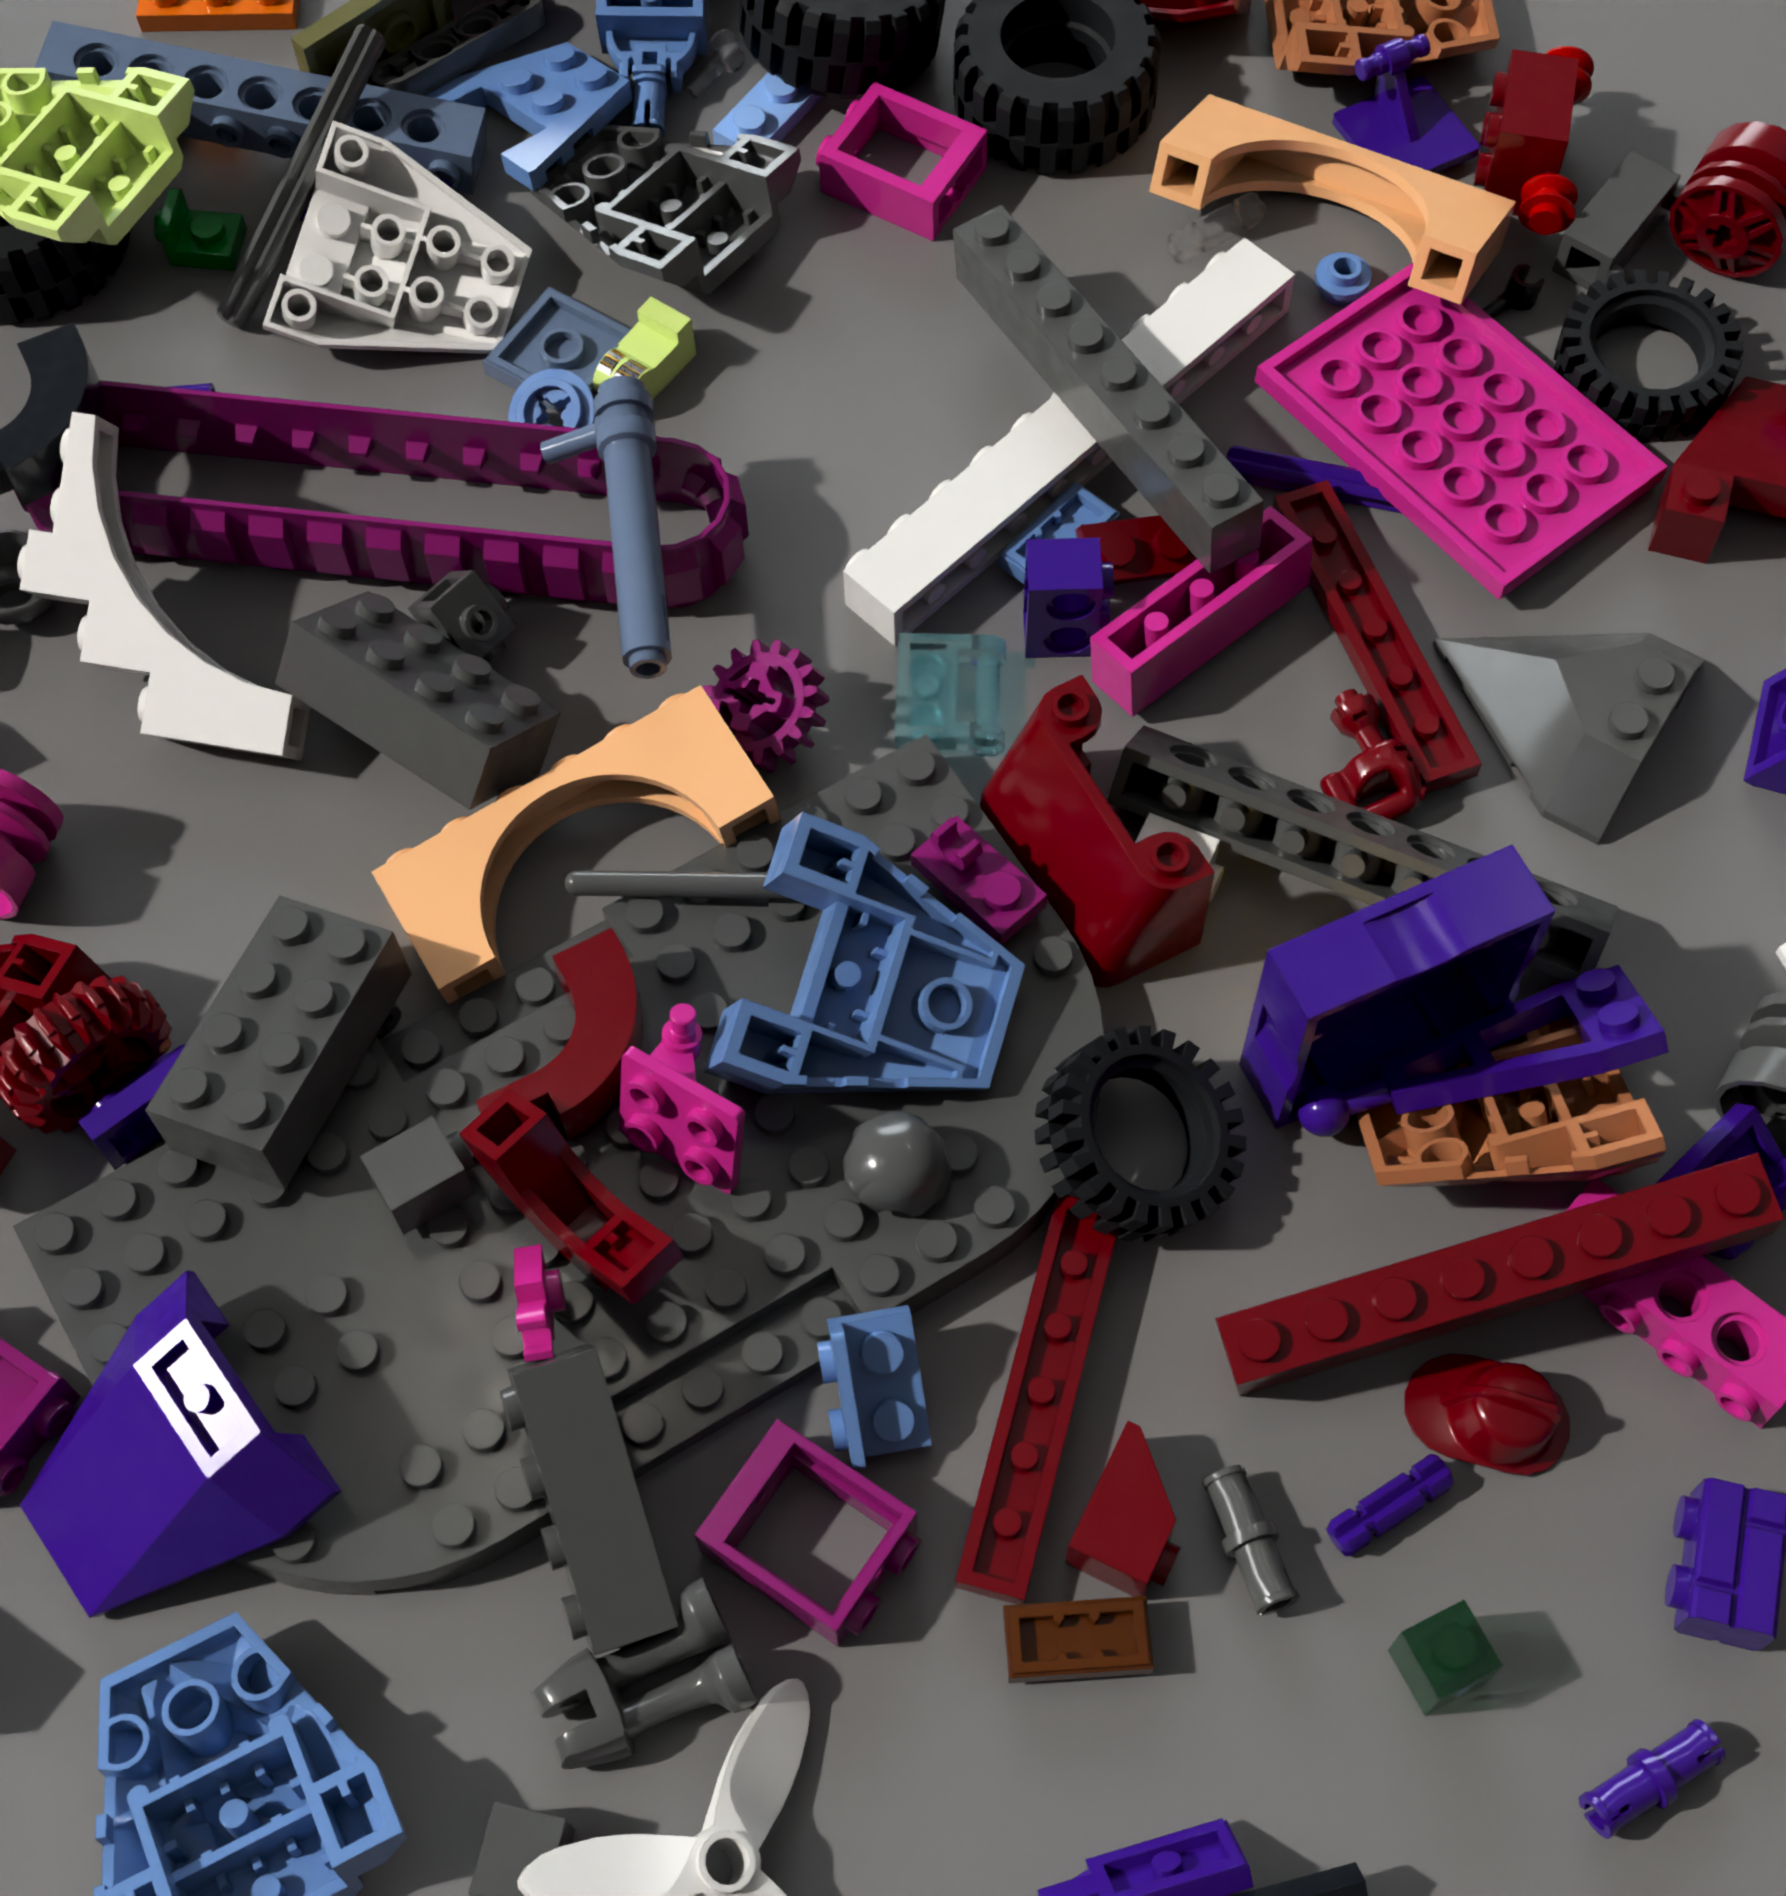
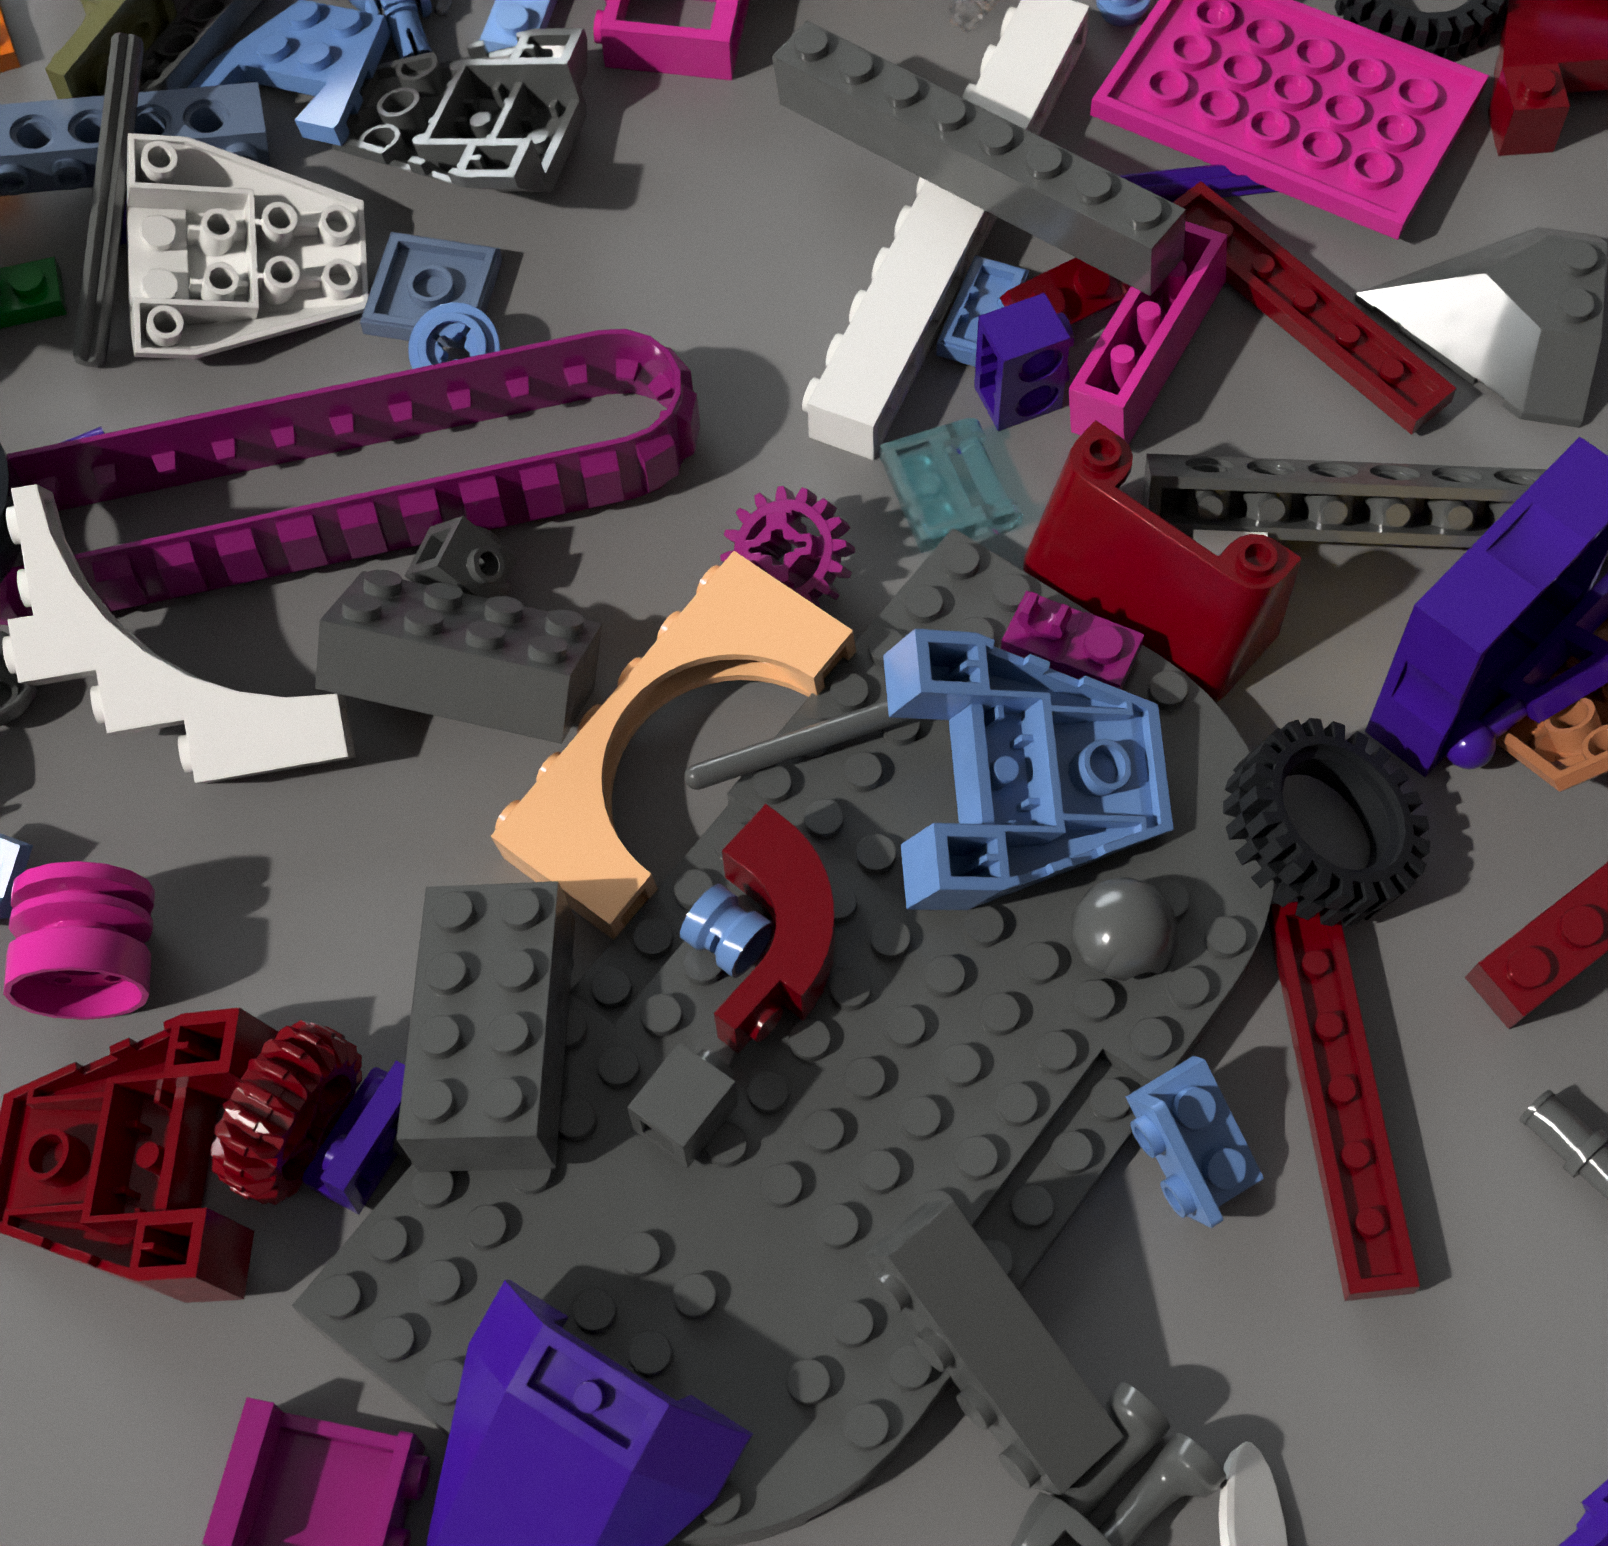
camera: 20 degrees left, 0 degrees up
(528, 1028) = (727, 930): none -> medium blue wheel
(538, 1297) = (862, 1182): dark pink plate -> none
(566, 1201) = (839, 1079): dark red arch -> none
(626, 445) = (566, 350): sand blue cylinder -> none
(652, 349) = (518, 266): yellowish green leg -> none
(675, 1115) = (912, 954): dark pink plate -> none
(751, 1492) = (1209, 1244): magenta window -> none
(1077, 1639) = (1479, 1304): reddish brown plate -> none
(1127, 1521) = (1474, 1177): dark red slope -> none
(1378, 767) = (1366, 420): dark red piece -> none

